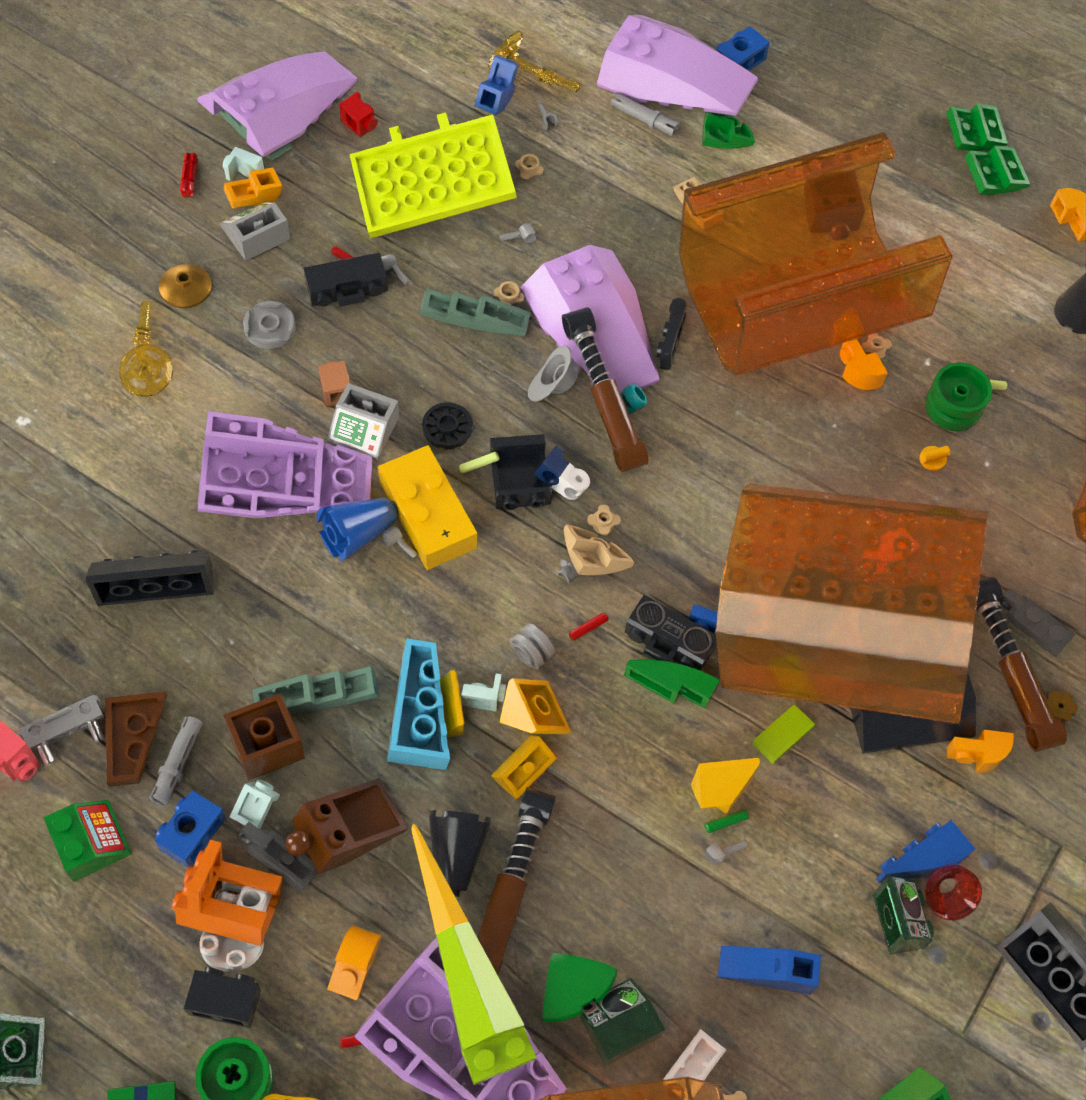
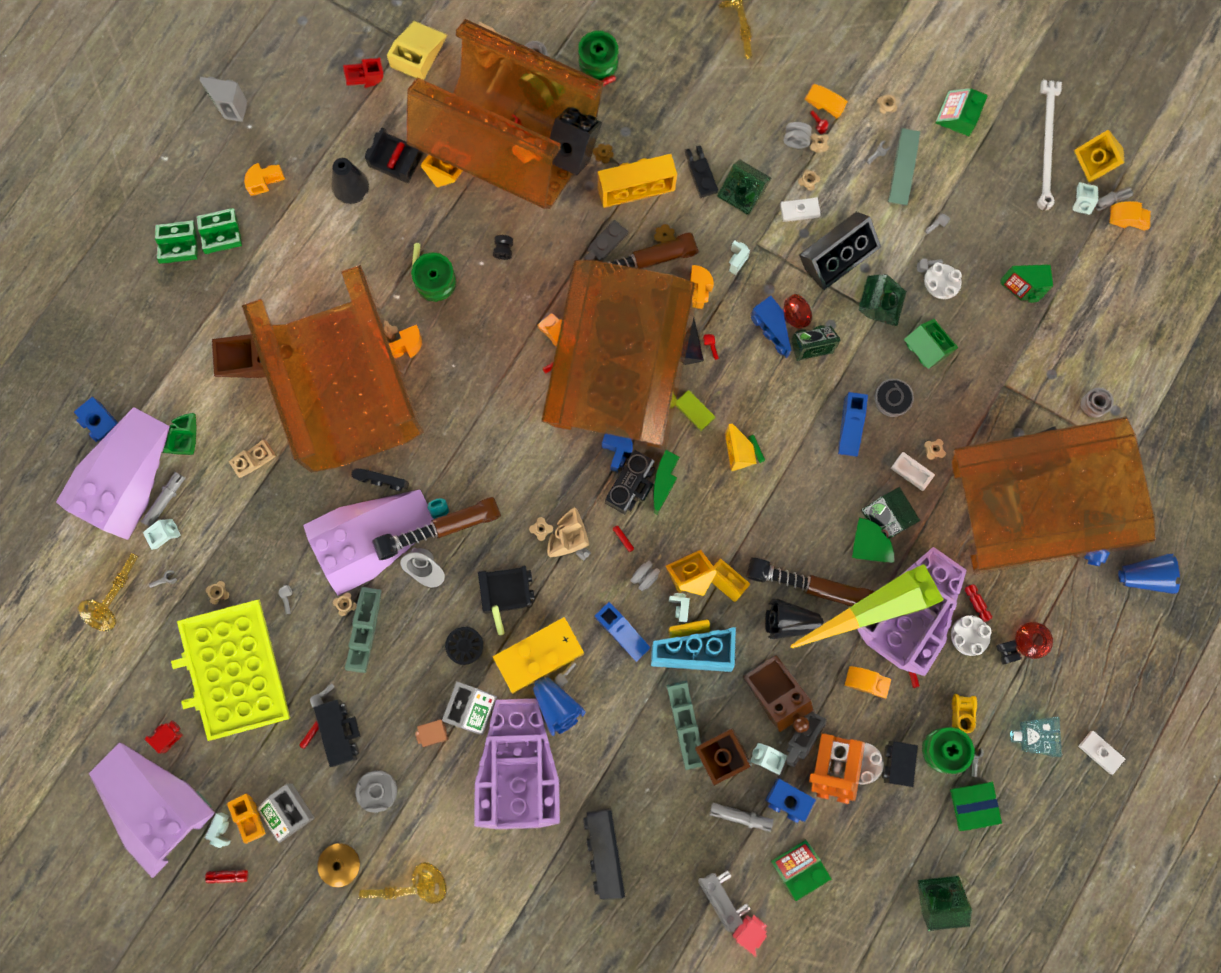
camera: 90 degrees left, 15 degrees up
(130, 734) = (725, 852): reddish brown wing -> none
(456, 609) = (622, 631): none -> blue slope
(498, 89) = (136, 620): blue brick -> none
(562, 475) = (509, 559): leg -> none
(605, 112) = (161, 532): none -> light aqua bracket
(716, 854) = (780, 454): light grey hand -> none
(819, 1047) = (894, 397): none -> black tile
(895, 763) = (709, 339): none -> red hand
(934, 457) = (480, 298): yellow plate -> none
(987, 1040) = (882, 299): none -> clear green slope
(1012, 485) = (503, 247): none -> black wheel
(1032, 812) = (739, 258): none -> light aqua bracket

